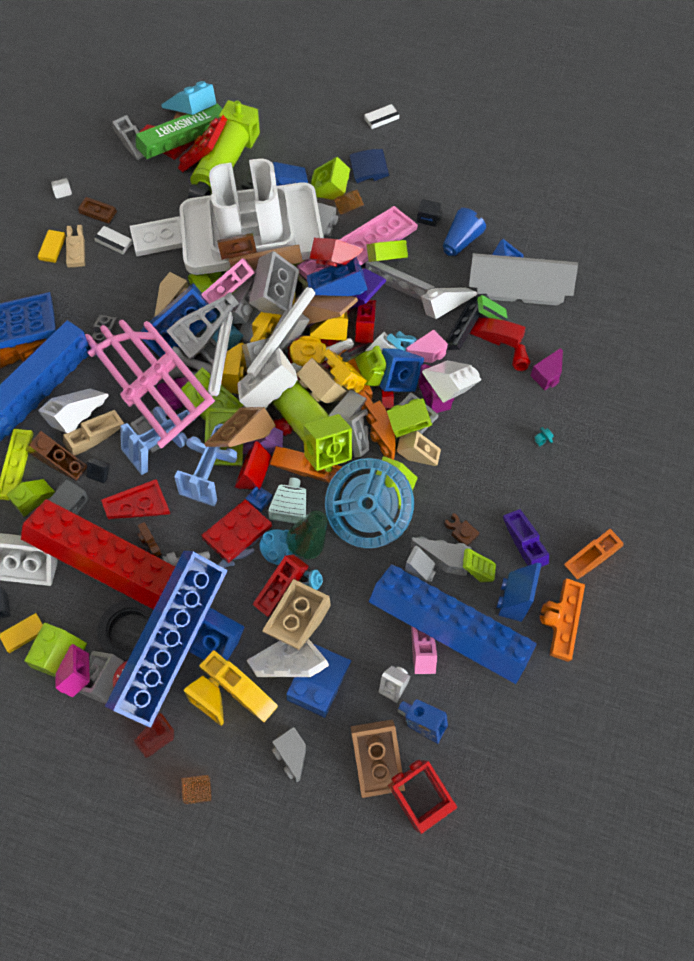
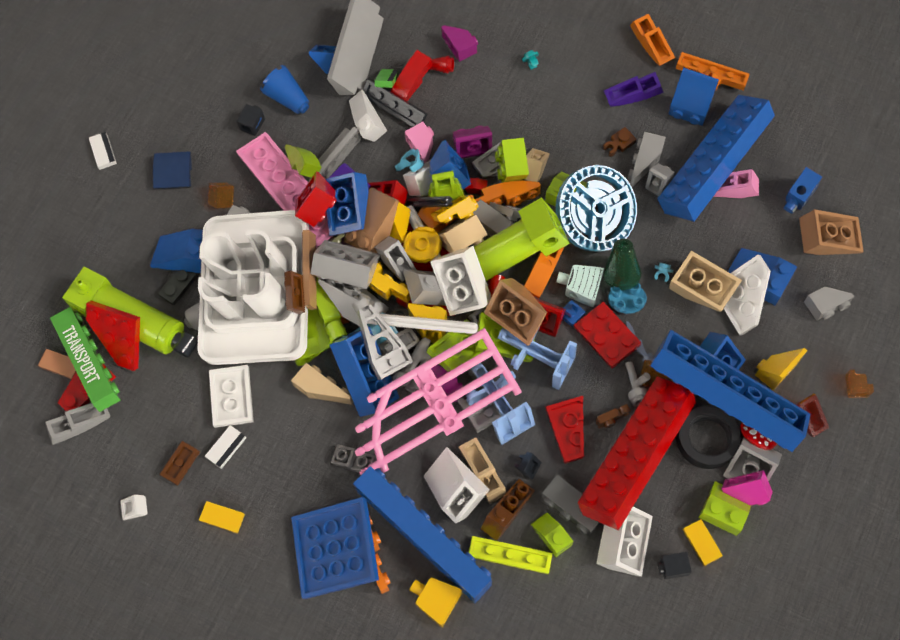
camera: 75 degrees left, 5 degrees up
(75, 248) = (229, 490): tan hinge -> none
(192, 99) = (40, 346): medium azure slope -> none
(229, 281) = (334, 304): bright pink slope -> none
(239, 685) = (765, 342): yellow slope -> none
(272, 593) = (667, 297): red slope -> none
(280, 332) = (412, 256): white axle -> none
(330, 179) = (186, 210): lime slope -> none
(393, 683) = (770, 208): white slope -> none
(436, 813) = (873, 187): red window -> none
(451, 378) = (470, 118): white slope -> none
(479, 566) = (662, 127): lime slope -> none

